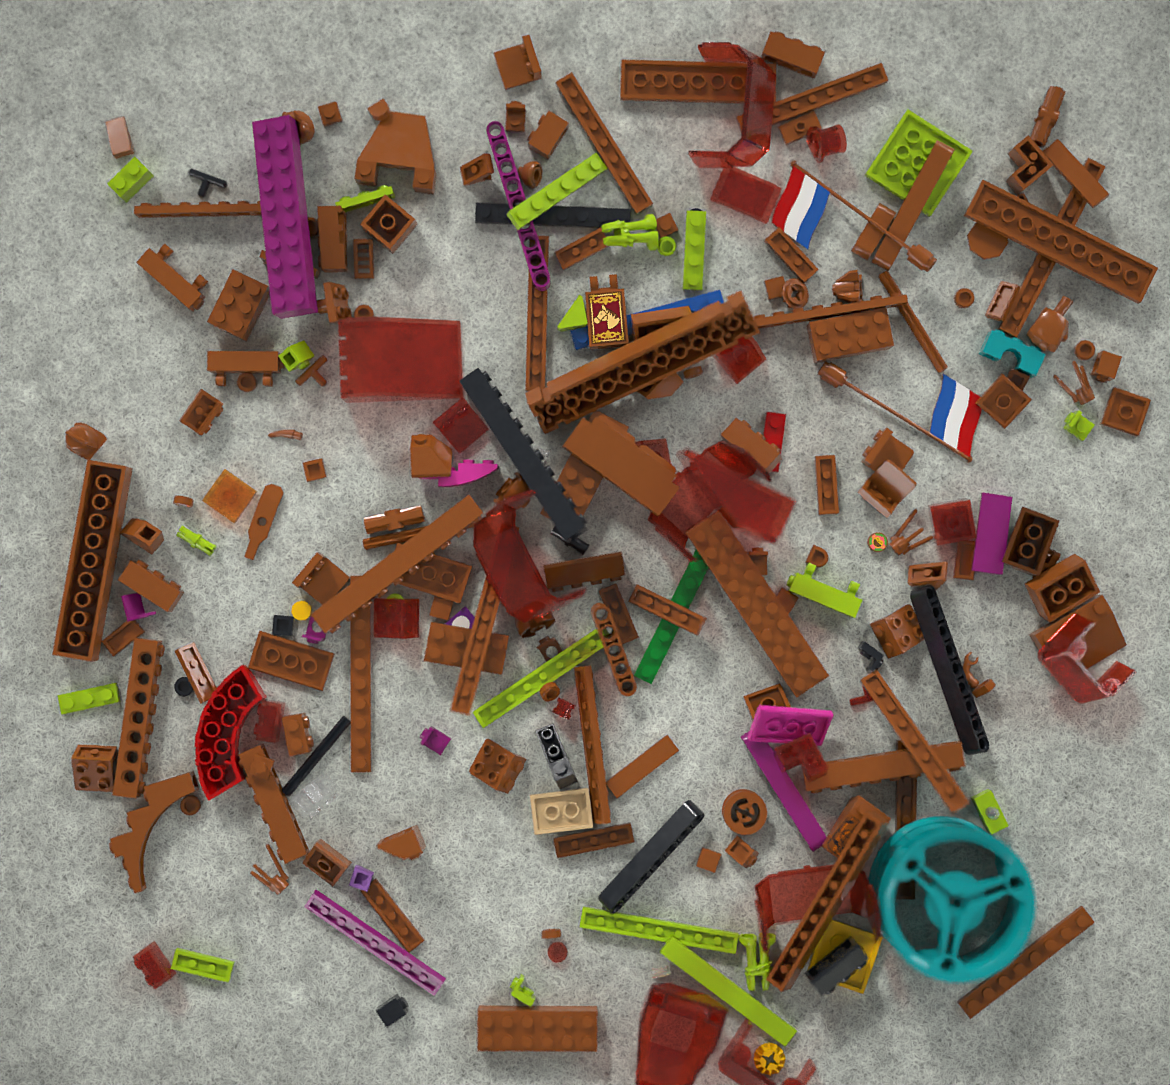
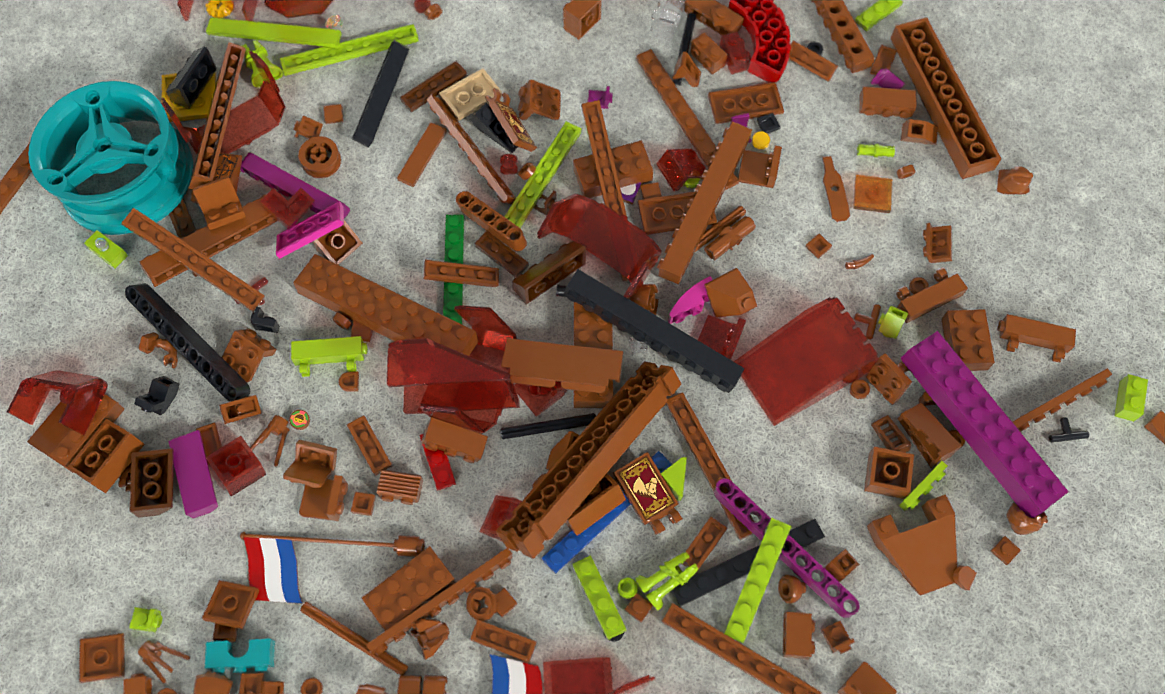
camera: 150 degrees right, 20 degrees down
(331, 723) = (687, 68): none -> dark orange slope
(540, 752) = (510, 121): none -> dark orange tile
(660, 422) = (547, 426): none -> black axle
(799, 619) = (341, 321): none -> dark orange tile
(817, 431) = (399, 487): none -> dark orange brick
(855, 433) = (363, 503): none -> dark orange plate
(866, 789) = (219, 202): none -> dark orange bracket
(995, 626) = (159, 397): none -> black brick

